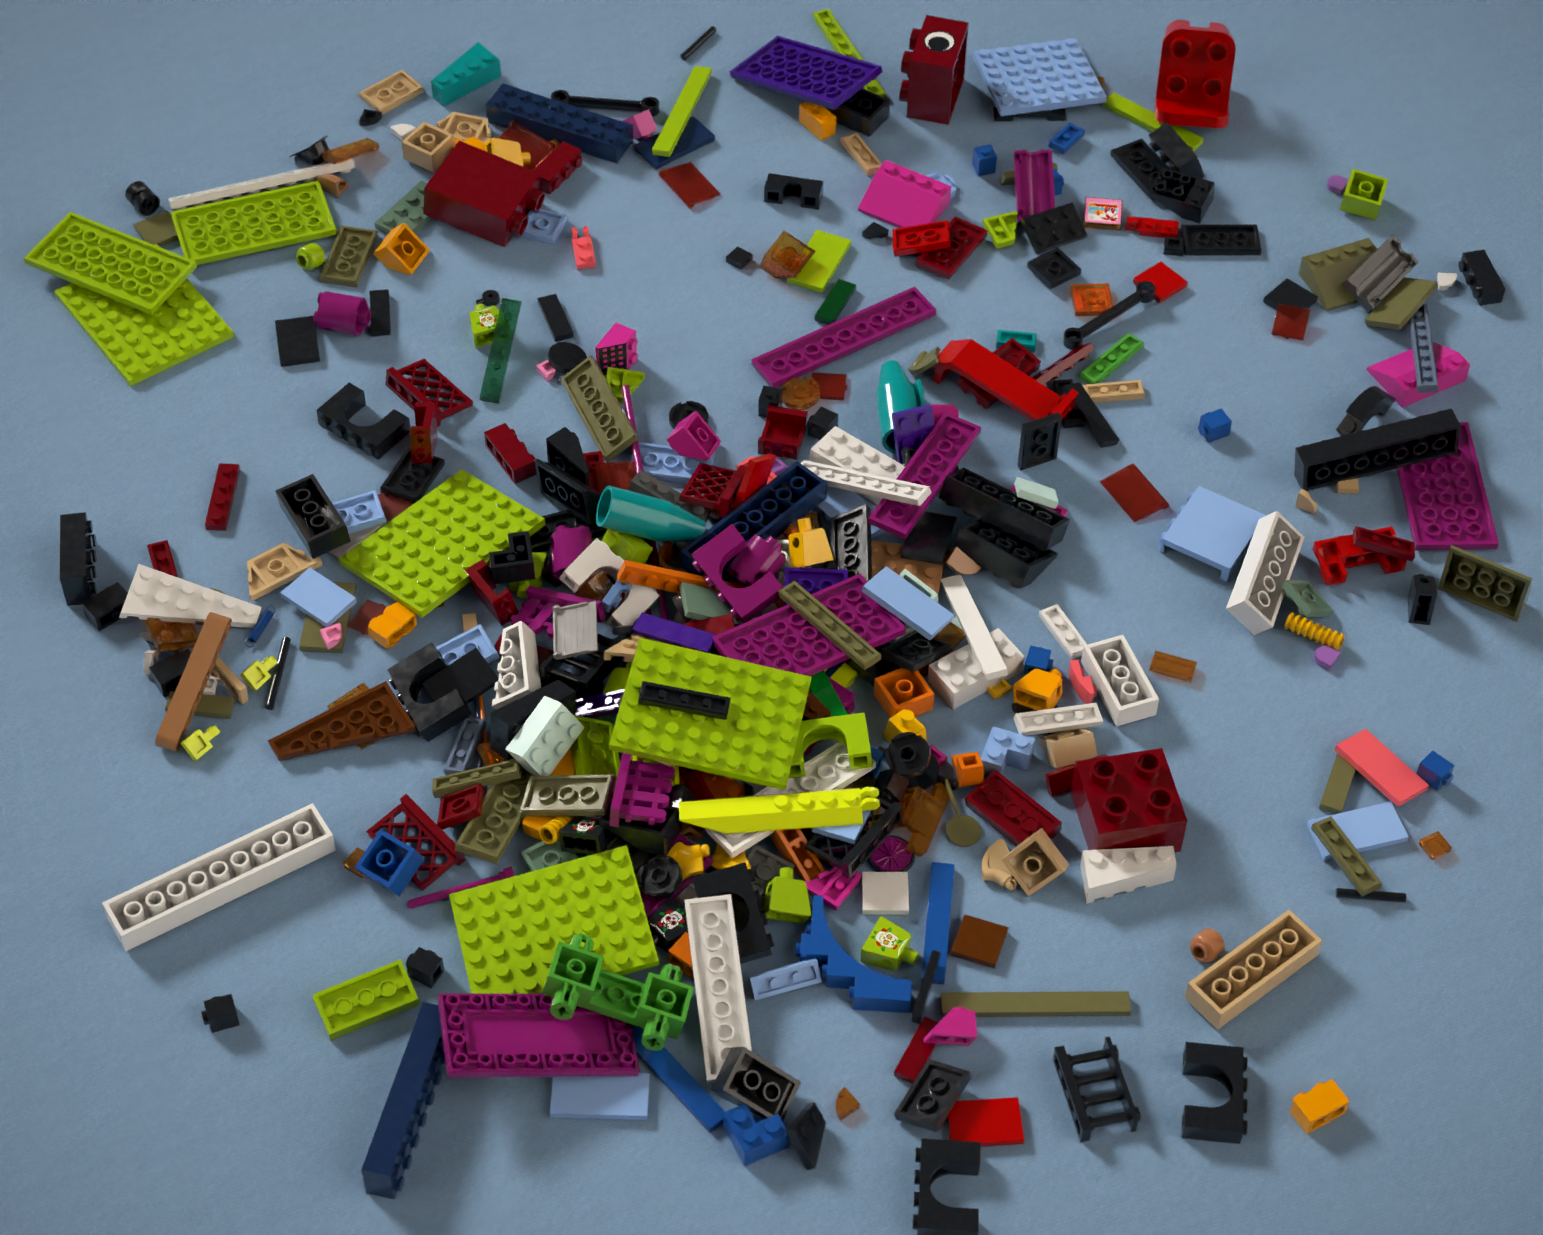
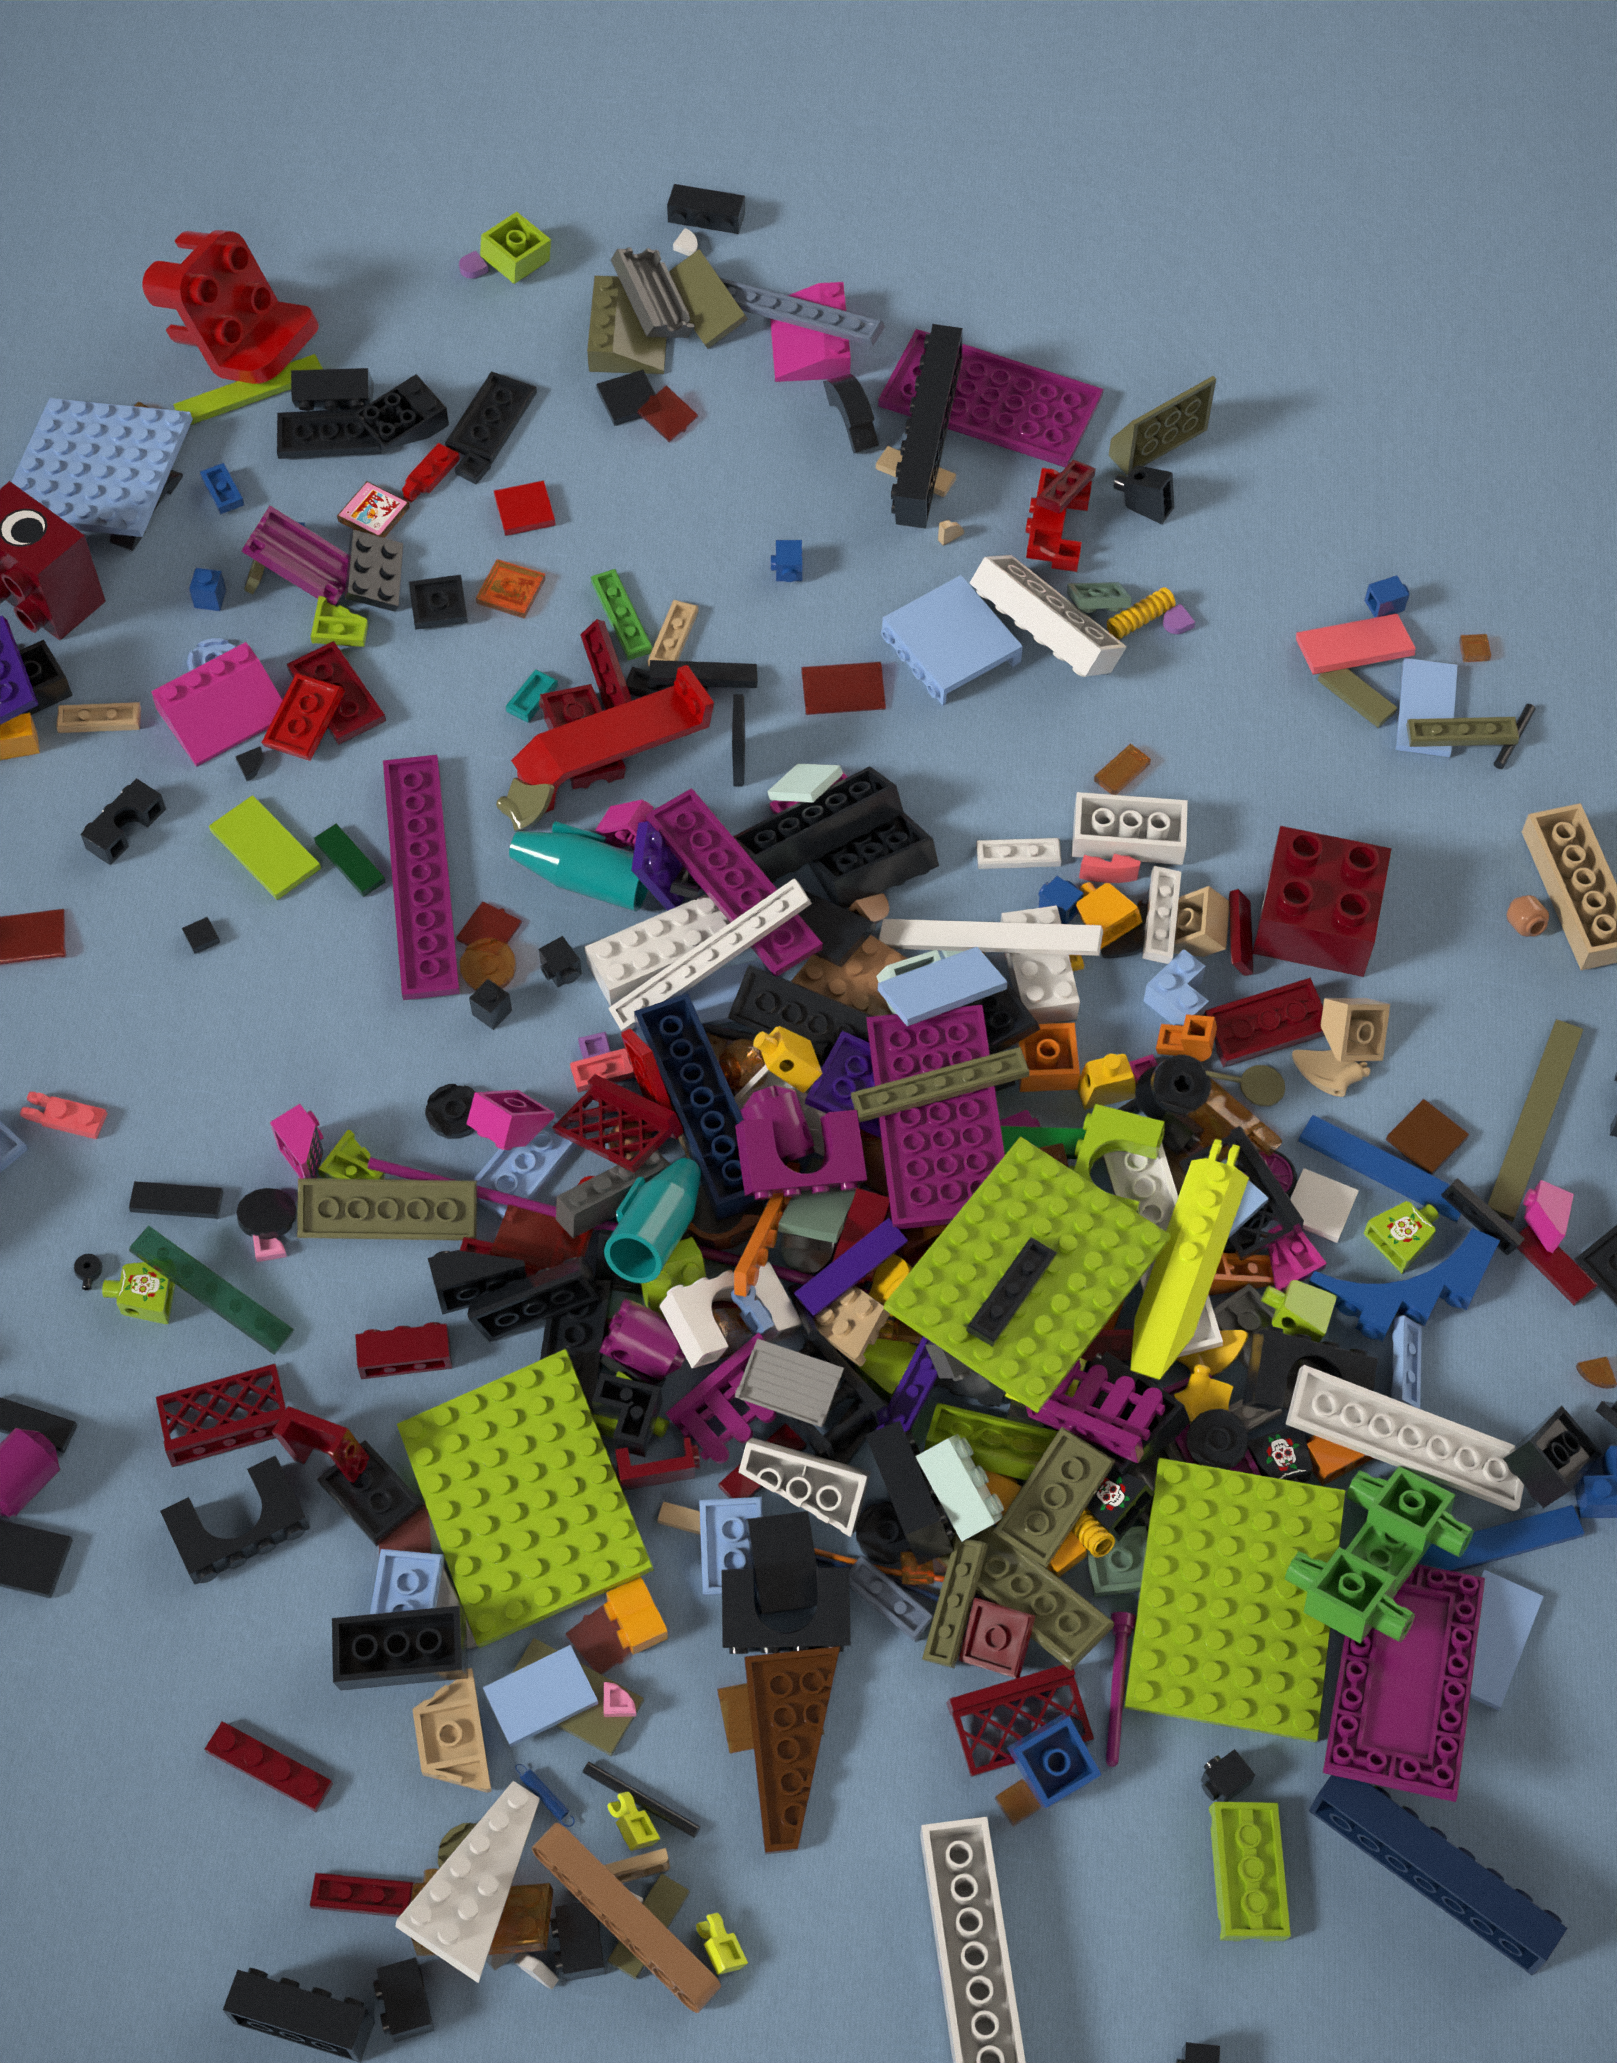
camera: 65 degrees left, 10 degrees up
(783, 432) = (547, 1014): dark red panel -> none
(786, 257) = (246, 878): clear orange slope -> none
(1109, 315) = (553, 582): black piece -> none
(1125, 869) = (1396, 956): white wedge -> none

